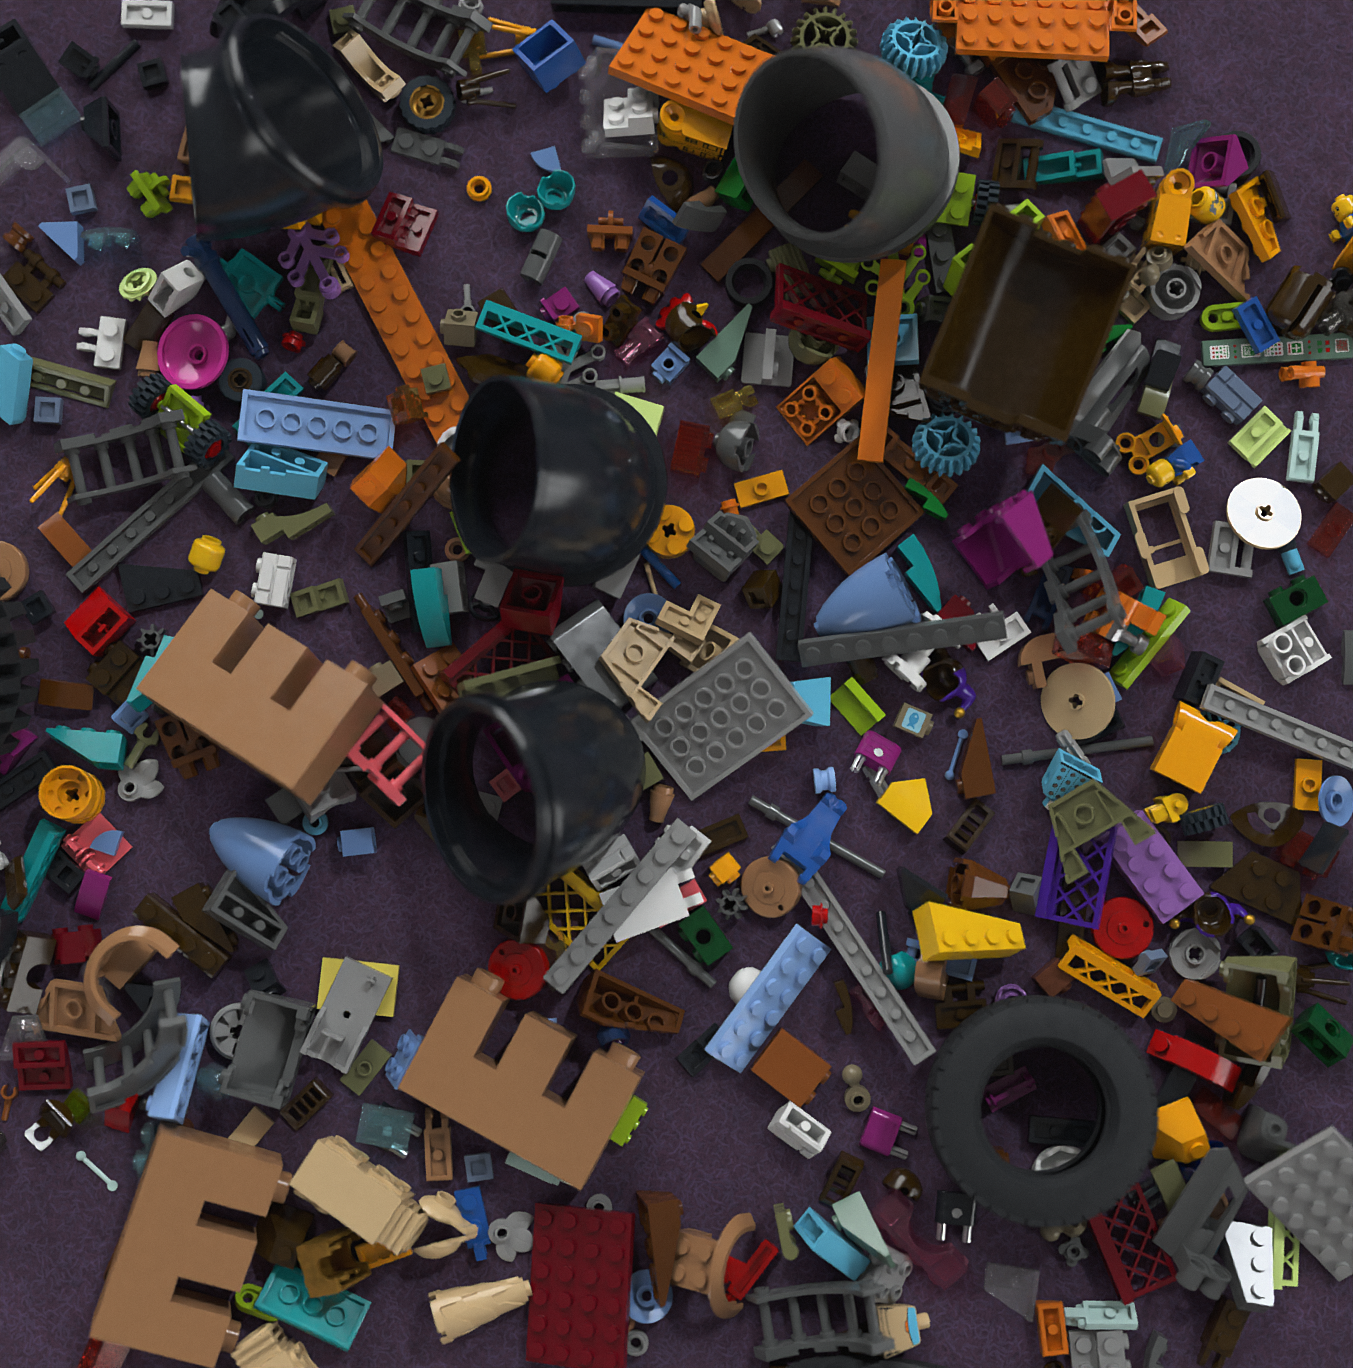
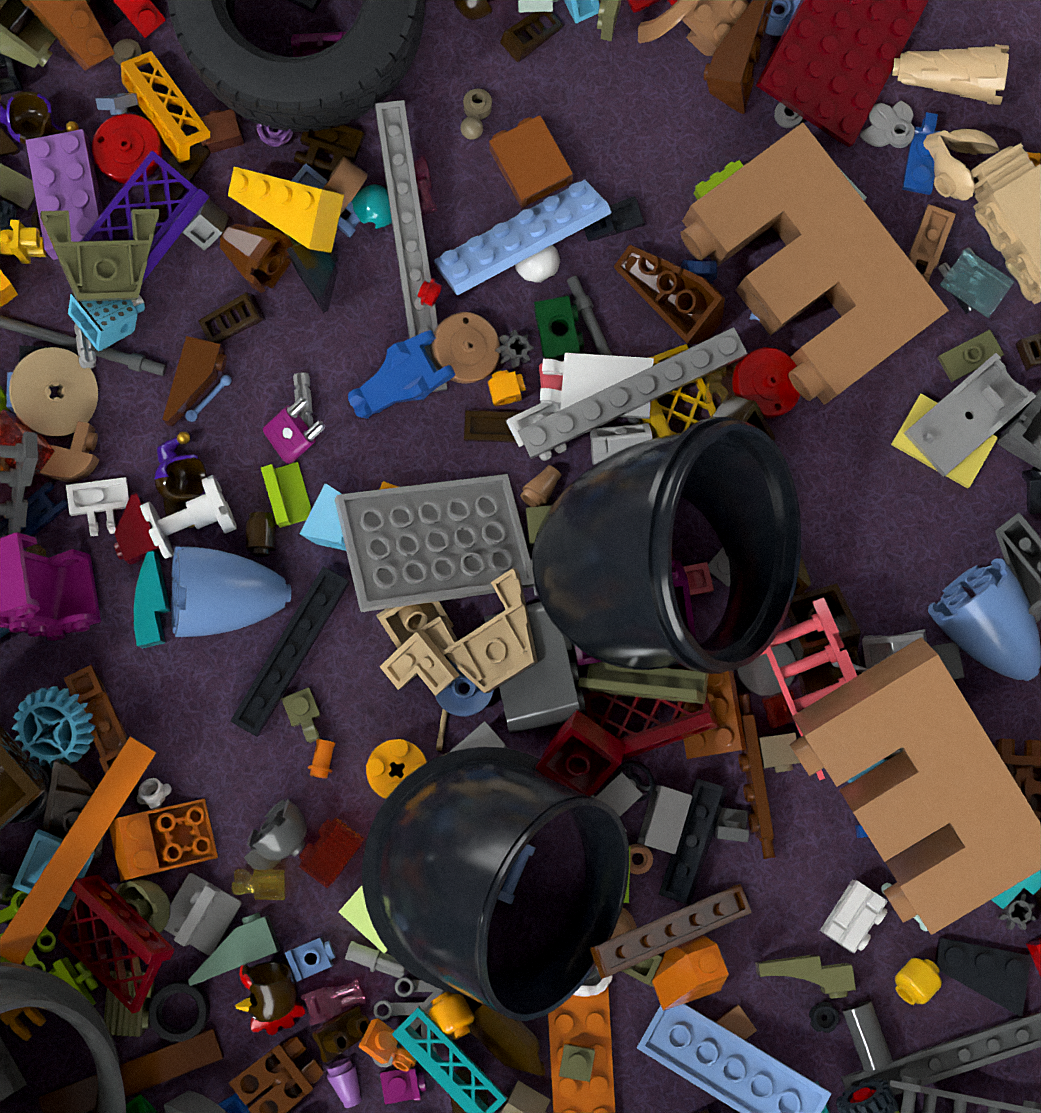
camera: 160 degrees left, 5 degrees down
(280, 471) = (797, 1036): medium azure wedge -> none
(319, 598) = (812, 875): olive slope -> none
(323, 825) = (920, 622): medium azure plate -> none
(357, 842) = (882, 590): medium blue brick -> none
(405, 405) = (624, 1048): clear orange brick -> none
(407, 1048) = (924, 346): medium blue hinge -> none
(431, 606) = (693, 804): teal slope -> none
(479, 1166) = (895, 205): sand blue plate -> none
(657, 564) = (424, 734): blue bar -> none
(723, 544) = (344, 727): dark grey piece -> none
(761, 489) = (276, 773): light orange plate -> none
(762, 589) = (327, 663): dark brown panel -> none
(773, 812) = (426, 423): dark grey bar -> none
(799, 1130) = (551, 95): white brick -> none
(824, 780) = (358, 432): light blue wheel -> none
(844, 1012) = (449, 192): dark brown slope -> none
(853, 508) = (187, 704): reddish brown plate -> none
(882, 1131) = (468, 60): magenta piece -> none
(884, 942) = (376, 238): black piece -> none
(903, 639) = (201, 533): dark grey plate -> none
(908, 803) = (282, 369): yellow slope -> none
(913, 721) = (235, 450): brick -> none
(932, 505) = (103, 671): green slope -> none
(1179, 954) = (78, 79): light grey plate -> none

